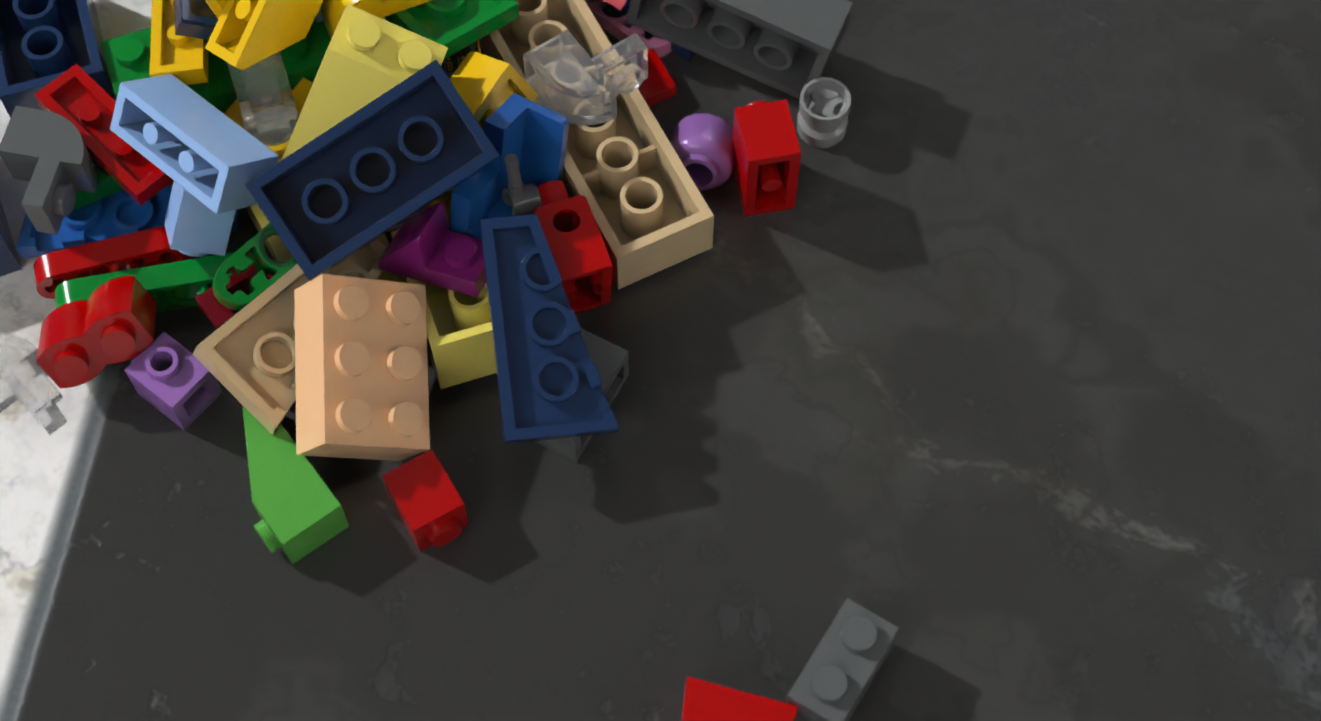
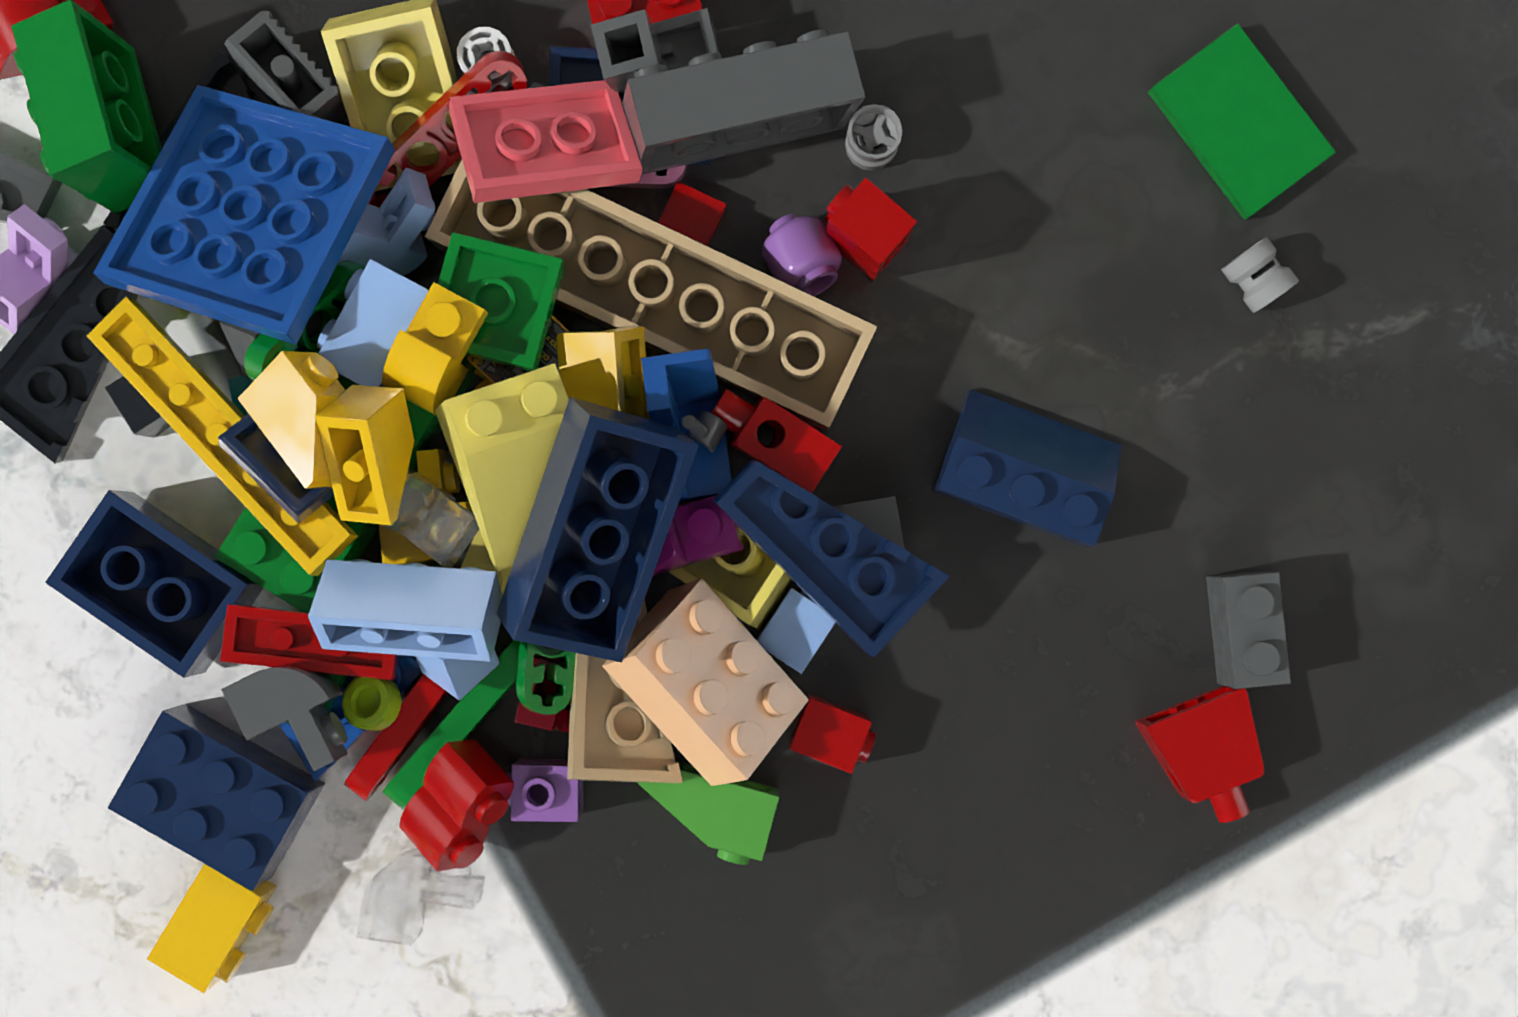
camera: 35 degrees left, 25 degrees up
(109, 216) = (371, 703): none -> lime tile
(466, 403) = (795, 630): none -> light blue brick
(585, 86) = (675, 299): clear brick -> none
(751, 422) = (1030, 469): none -> dark blue slope
(1061, 408) = (1265, 286): none -> light grey wheel
(1131, 297) = (1241, 121): none -> green tile

